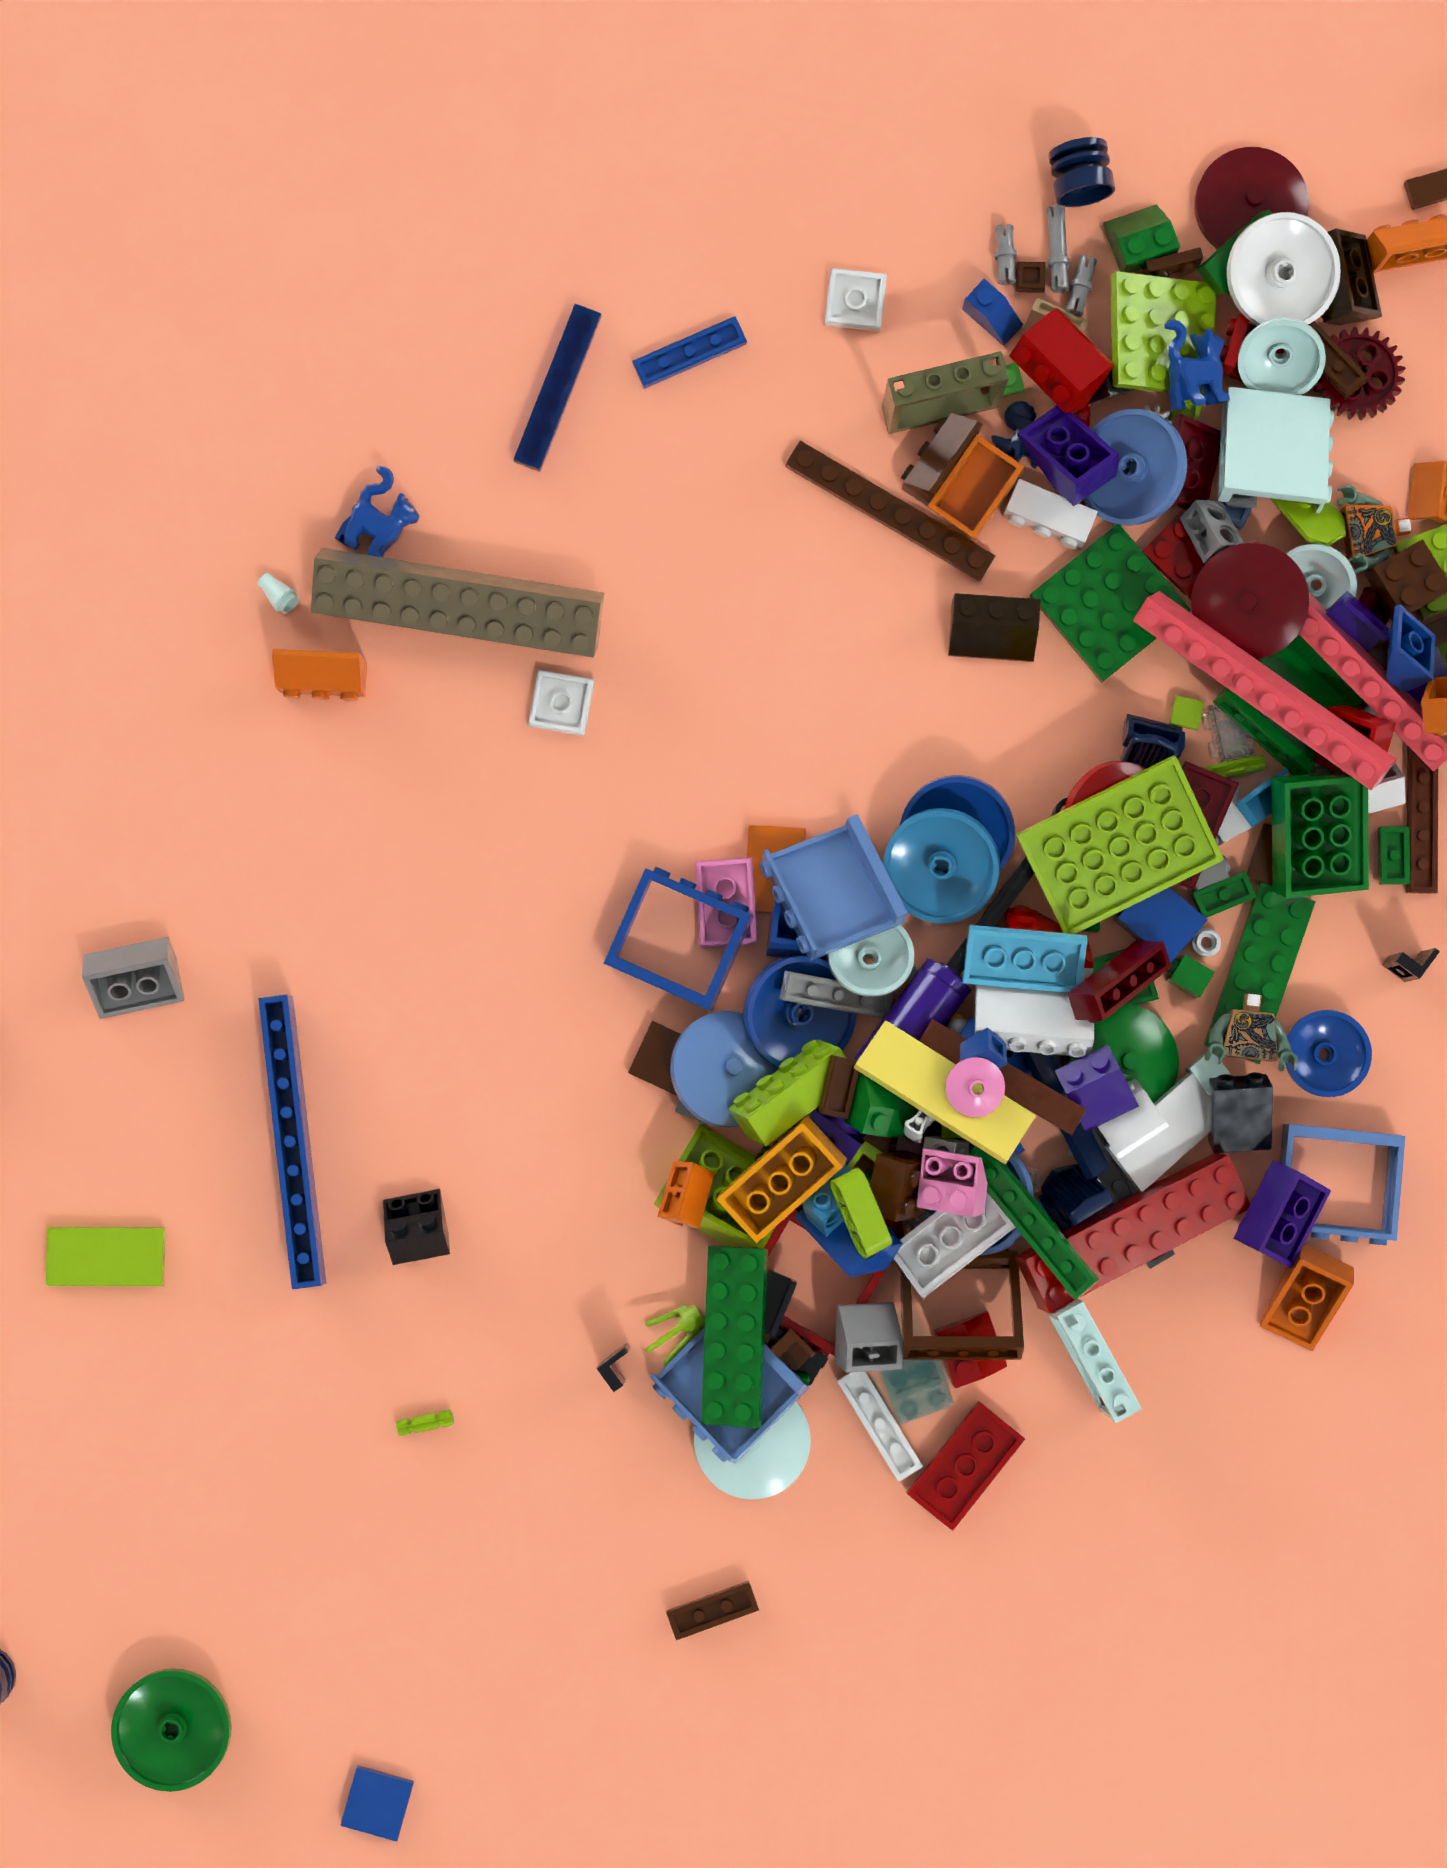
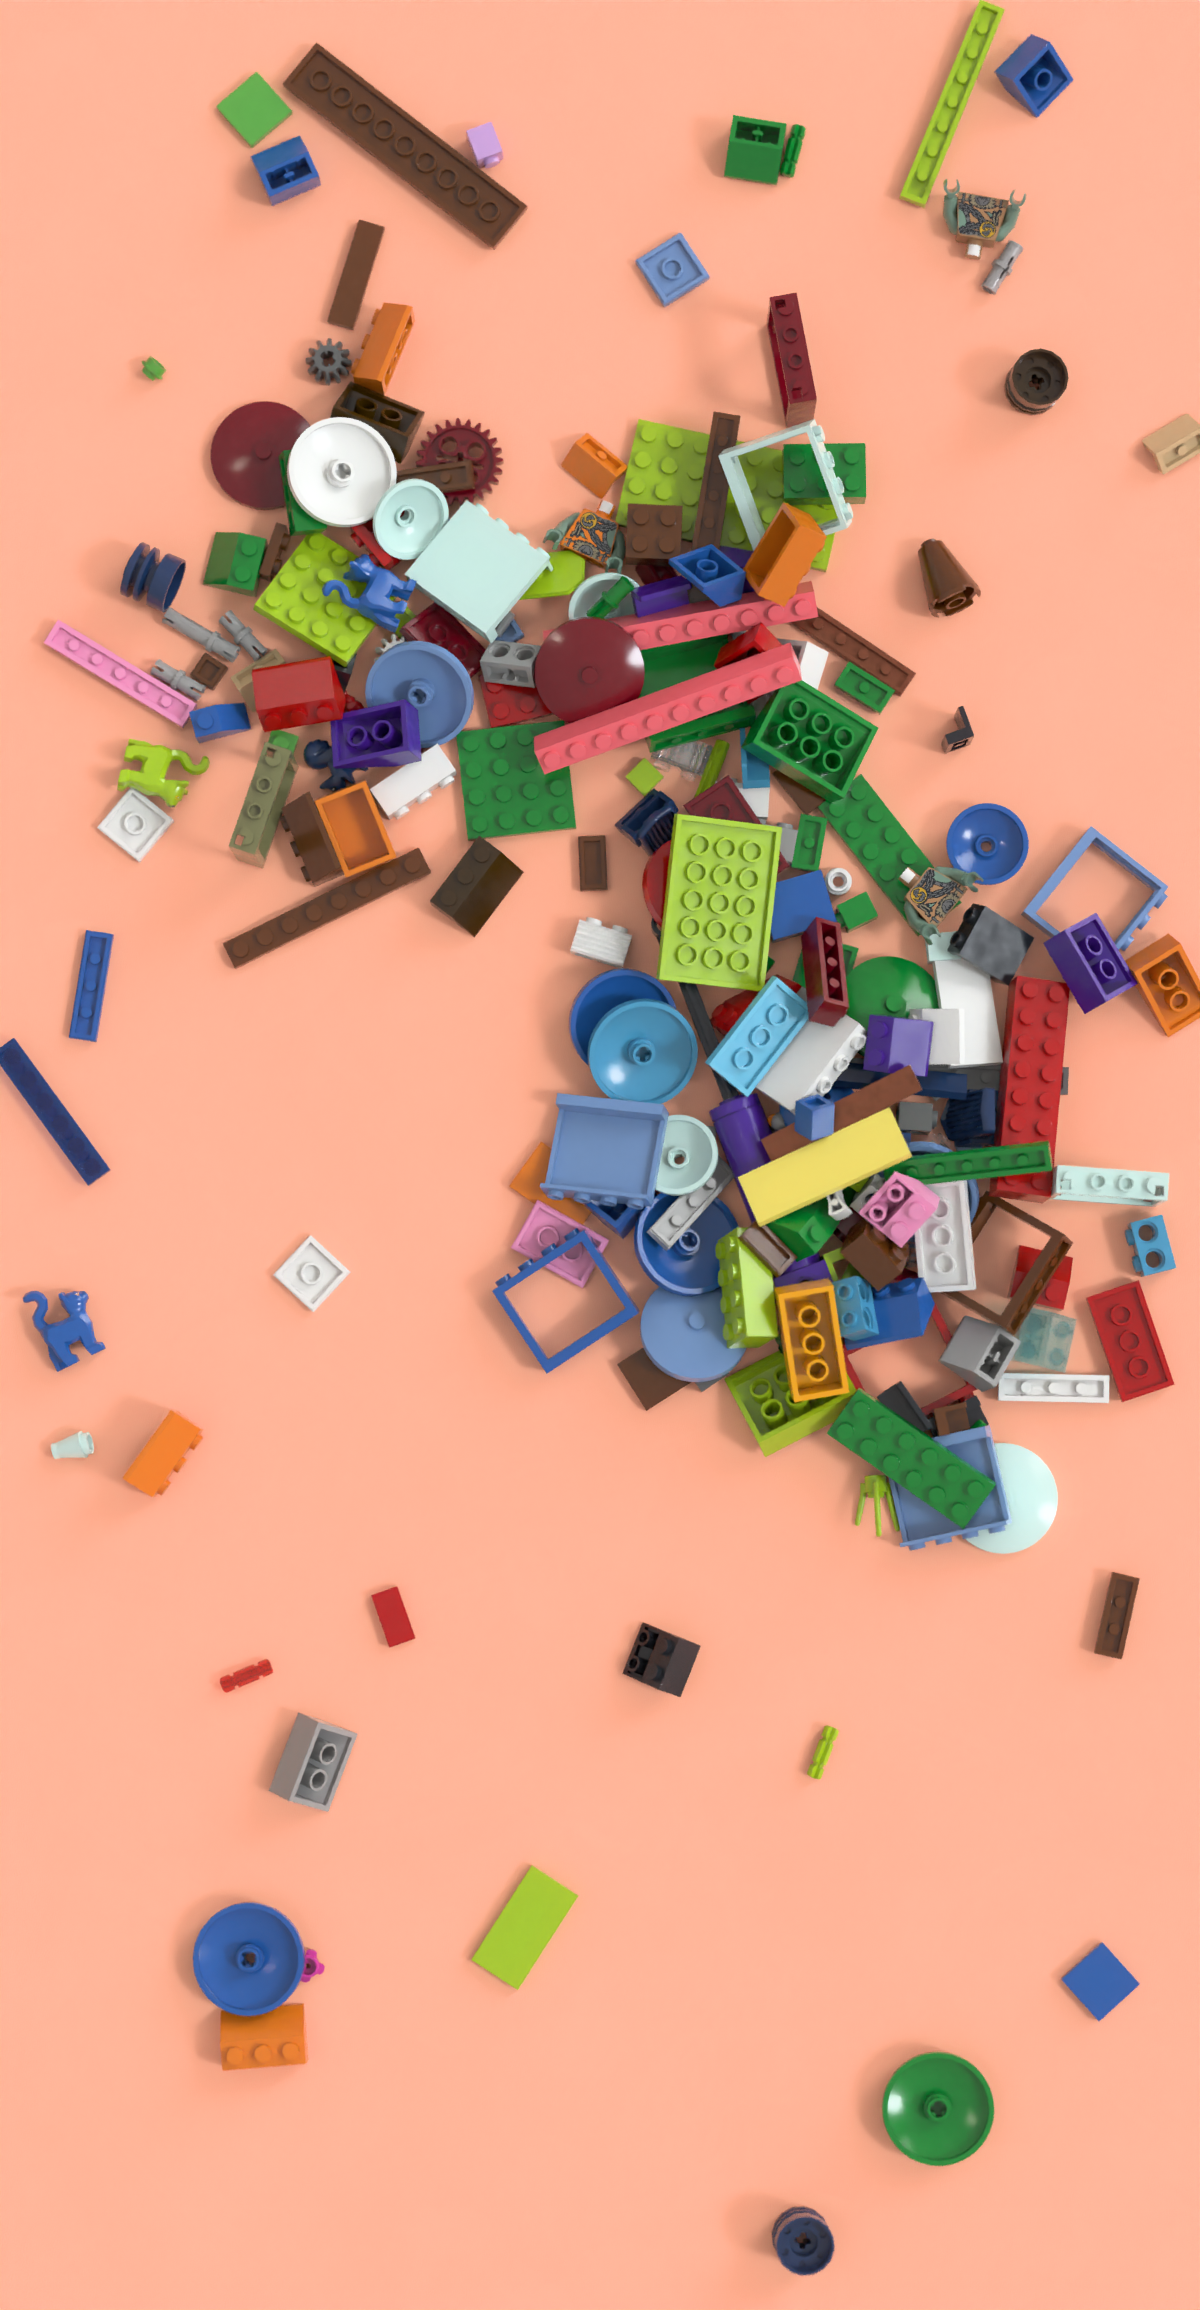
camera: 55 degrees left, 0 degrees up
(173, 871) = (246, 1675): none -> clear red axle
(292, 1141) = (529, 1715): blue brick -> none
(305, 966) = (393, 1616): none -> red tile
(457, 602) = (177, 1305): dark tan brick -> none
(609, 1370) = (878, 1576): black panel -> none
(686, 1194) = (774, 1424): orange hinge -> none
(860, 1213) = (877, 1294): lime beam -> none
(913, 283) = (155, 764): none -> lime animal
(960, 1085) = (823, 1145): bright pink dish -> none
(978, 200) = (120, 673): none -> bright pink plate
(1015, 769) = (601, 943): none -> white brick
(1041, 1146) = (916, 1118): none -> dark grey brick
(1068, 1435) = (1157, 1244): none -> dark azure brick
(1080, 716) = (592, 863): none -> reddish brown tile
(1263, 58) = (153, 368): none -> bright green plate
(1329, 579) = (611, 598): none -> green axle
(1378, 197) = (328, 351): none -> dark grey gear

